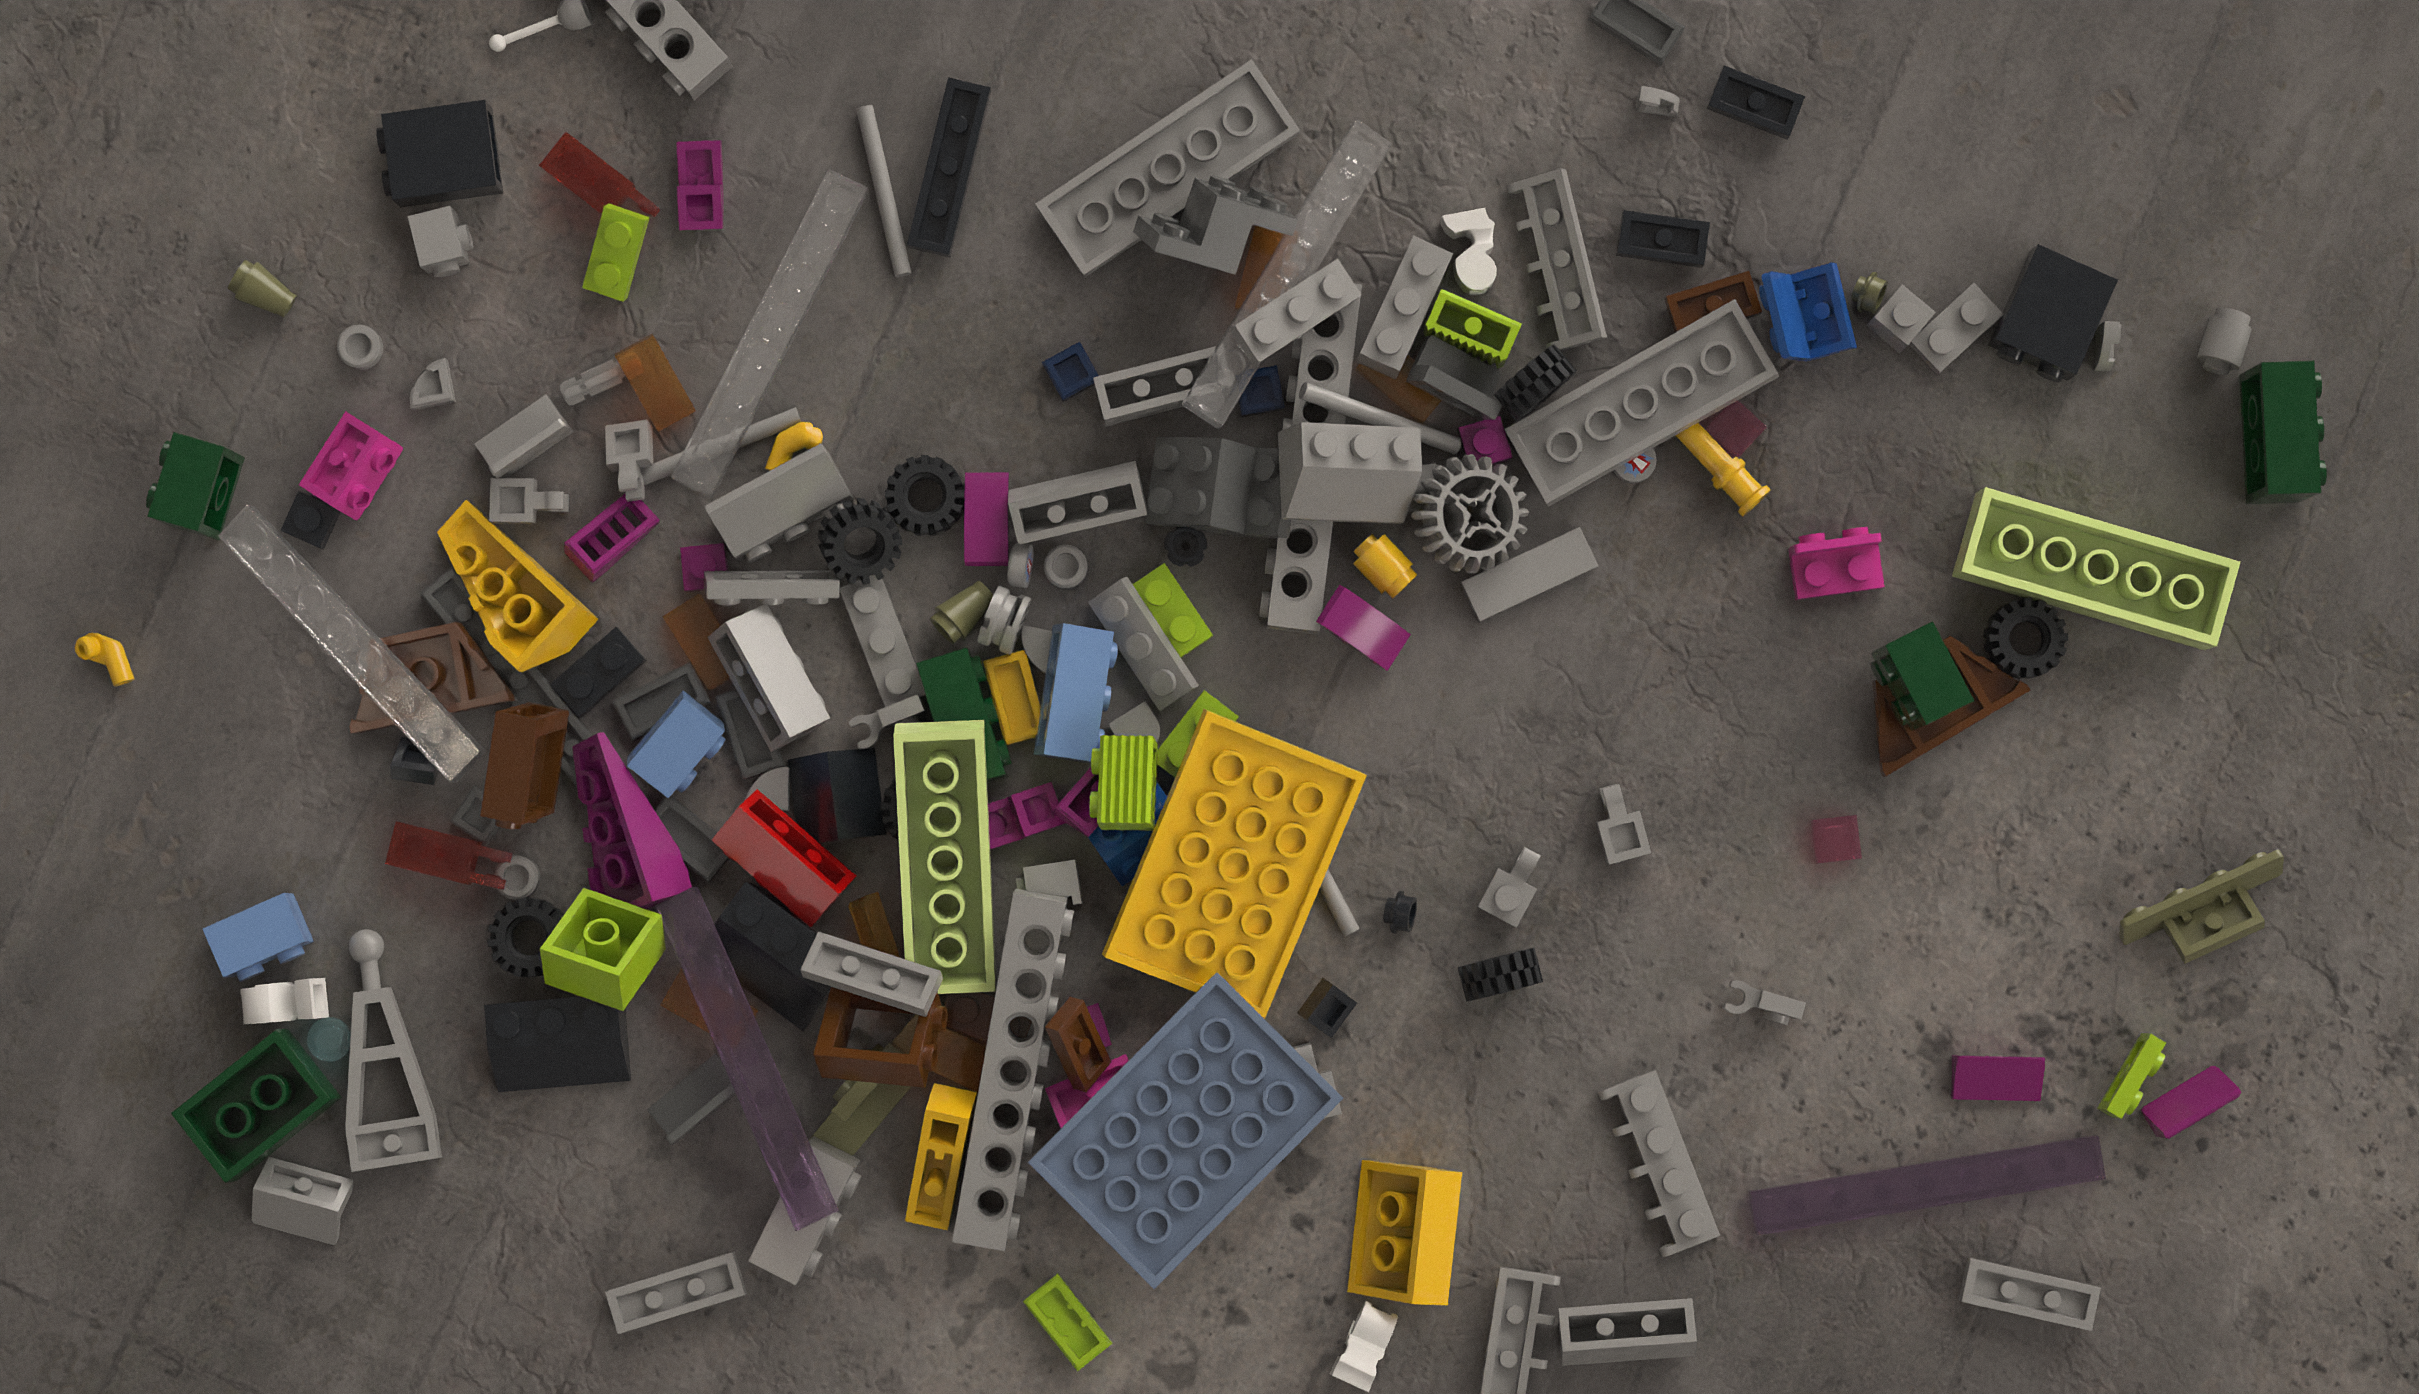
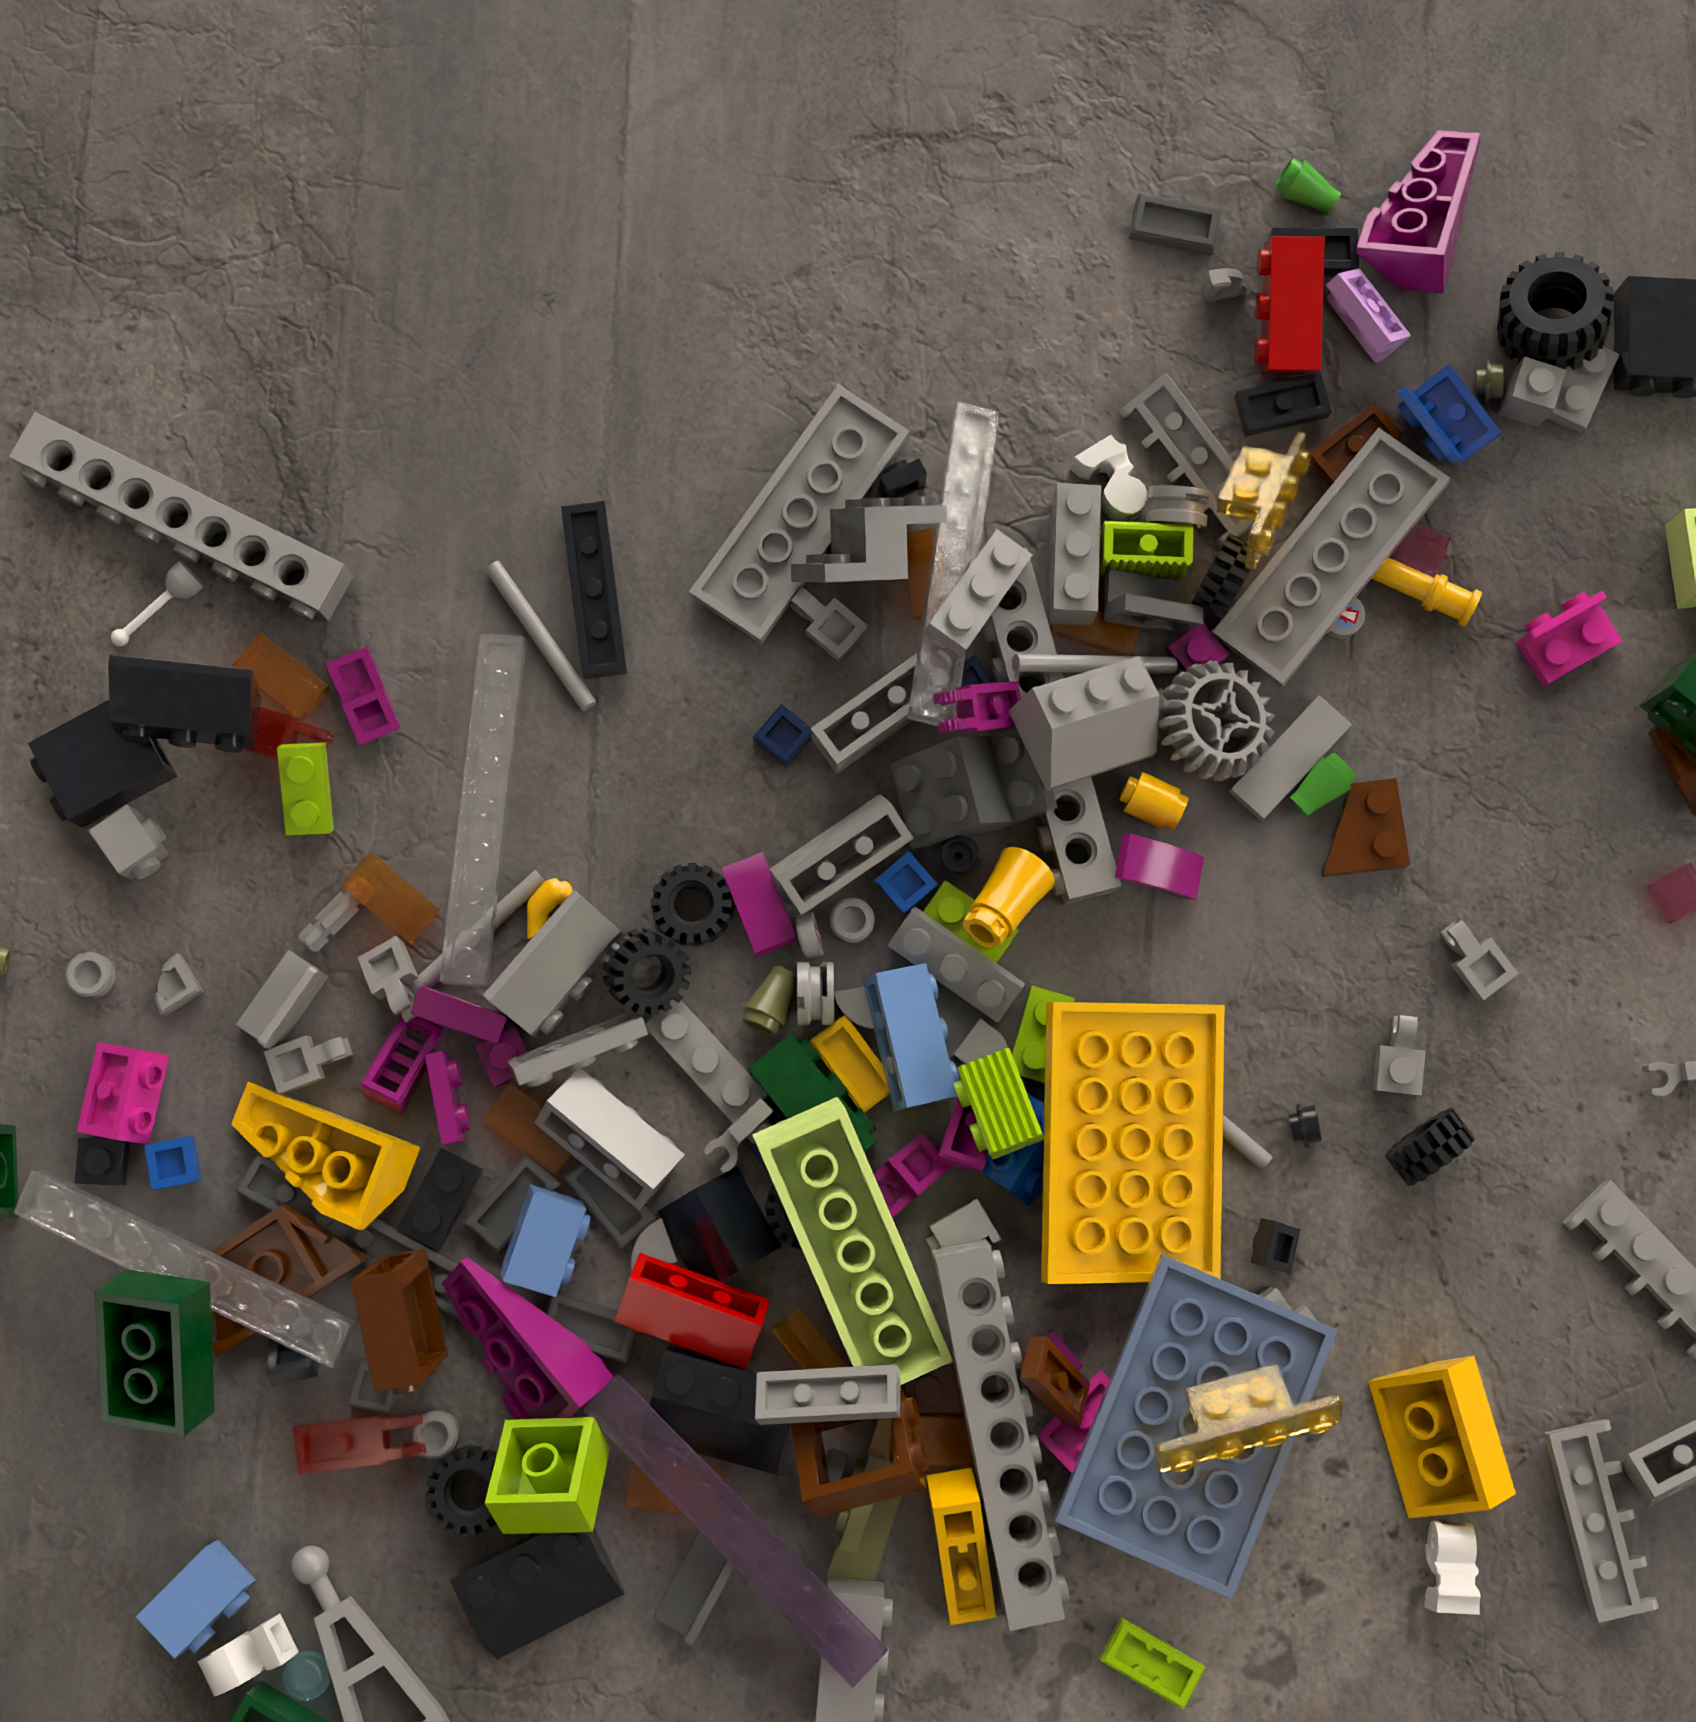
camera: 25 degrees left, 5 degrees down
(301, 707) = (154, 1352): none -> dark green brick
(373, 546) = (172, 1163): none -> blue plate
(535, 136) = (183, 703): none -> black slope
(632, 137) = (282, 677): none -> clear orange tile
(636, 602) = (444, 1079): none -> magenta plate
(676, 513) = (458, 1014): none -> magenta slope
(1127, 551) = (906, 883): none -> blue plate
(1155, 287) = (832, 626): none -> light grey plate
(1212, 601) = (1008, 896): none -> yellow plant
(1226, 1135) = (1242, 1414): none -> clear yellow bracket
(1251, 419) = (979, 707): none -> magenta hinge
(1275, 173) = (902, 479): none -> black plate
(1517, 300) = (1177, 505): none -> light grey wheel
(1547, 611) = (1323, 784): none -> bright green cone
(1572, 670) = (1369, 831): none -> reddish brown wing
(1597, 317) = (1259, 492): none -> clear yellow bracket
(1705, 149) = (1290, 305): none -> red brick
(1775, 36) = (1305, 186): none -> bright green cone
(1776, 183) = (1366, 314): none -> lavender bracket
(1865, 116) = (1420, 221): none -> magenta wedge
(1959, 222) = (1562, 285): none -> black tyre

